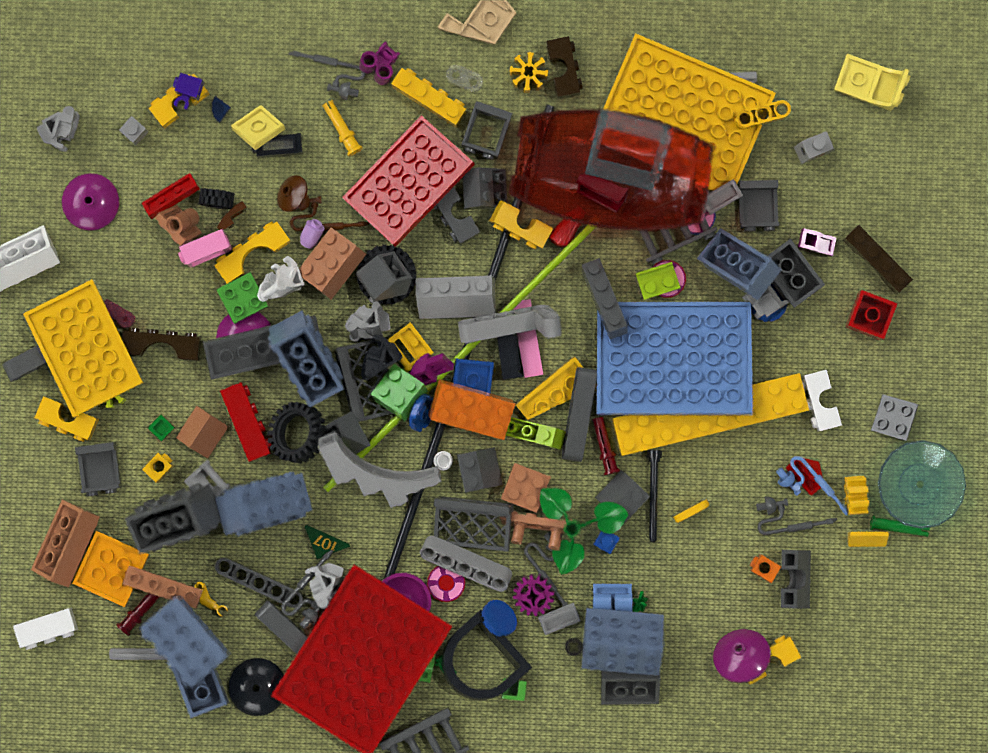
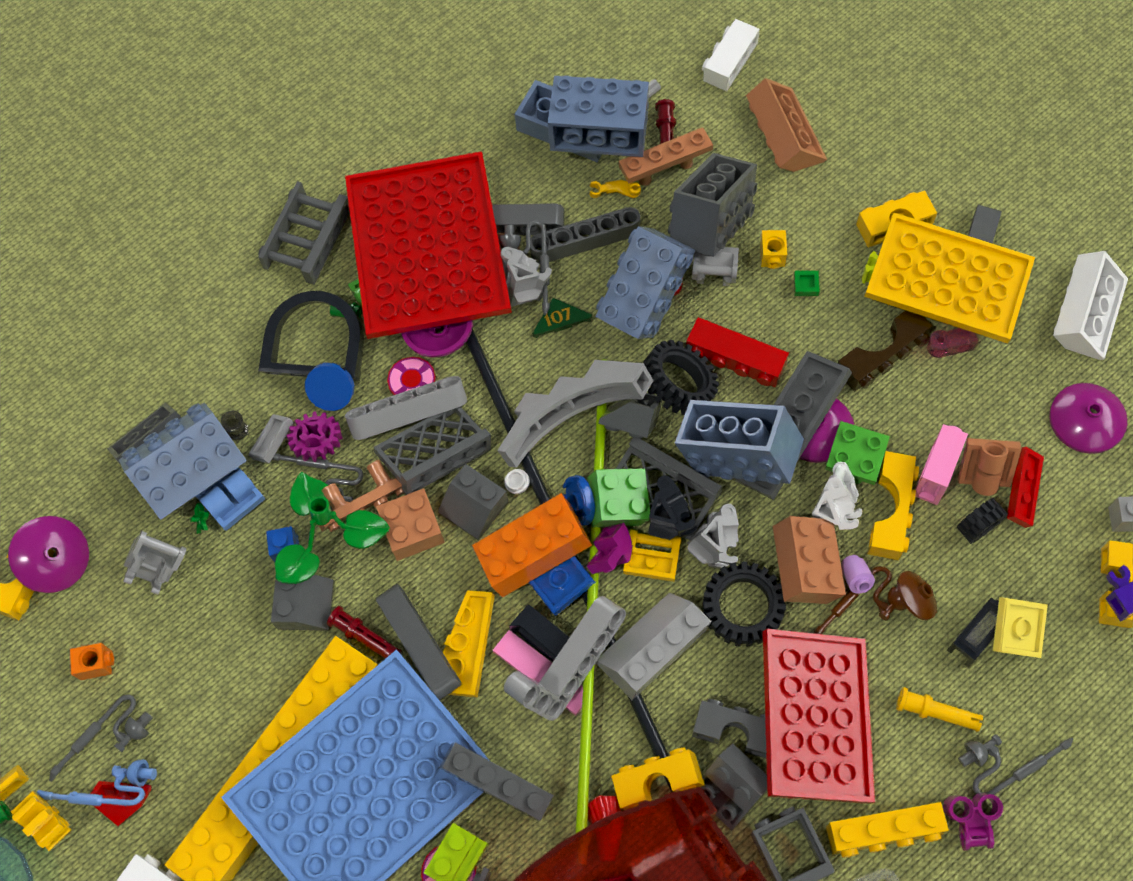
camera: 145 degrees right, 20 degrees down
(99, 468) = (823, 206): dark grey panel -> none
(106, 567) = (732, 134): light orange plate -> none
(202, 432) = (766, 311): nougat slope -> none
(219, 109) = (1073, 616): dark blue tile -> none
(226, 221) = (950, 512): reddish brown slope -> none
(252, 672) = (508, 170): black dish -> none
(384, 277) = (743, 590): dark grey slope -> none
(516, 692) = (253, 341): bright green panel -> none
(536, 433) = (446, 585): lime slope -> none
(654, 457) = (301, 667): black piece -> none
(686, 595) = (152, 561): none -> light grey piece
(691, 511) = (217, 650): yellow tile -> none
(799, 568) = (35, 665): dark grey arch -> none

